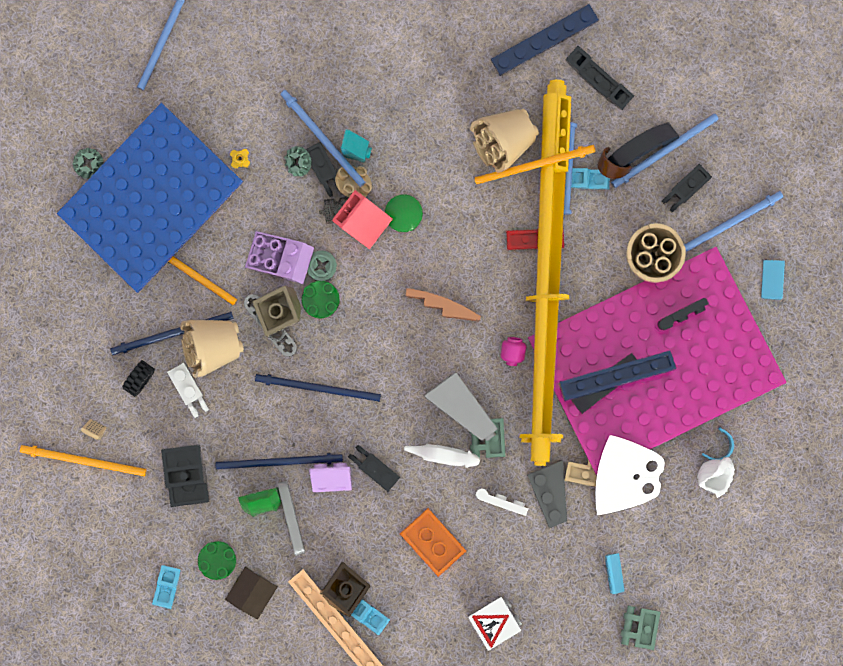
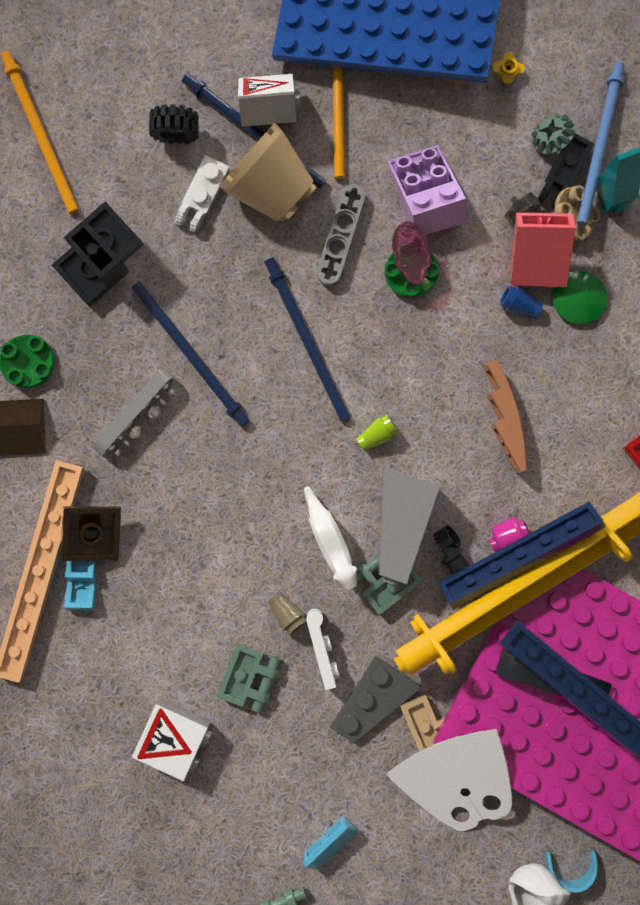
camera: 65 degrees right, 0 degrees up
(93, 429) = (81, 118): tan slope -> none
(163, 313) = (268, 100): none -> piece
(261, 502) = (126, 362): green slope -> none
(278, 310) = (364, 226): dark tan slope -> none
(311, 293) = (411, 252): none -> clear pink arm
(331, 266) = (463, 242): sand green gear -> none
(331, 479) = (204, 418): lavender slope -> none
(376, 469) = (258, 471): black hinge -> none
(382, 250) = (519, 302): none -> blue cone
(401, 385) = (377, 433): none -> lime cone
(433, 542) = (219, 598): orange tile -> none
(468, 508) = (288, 615): none -> dark tan cone
(485, 559) = (240, 675): none -> sand green plate
(504, 391) = (451, 546): none -> black connector
(525, 354) = (522, 555): none -> dark blue plate

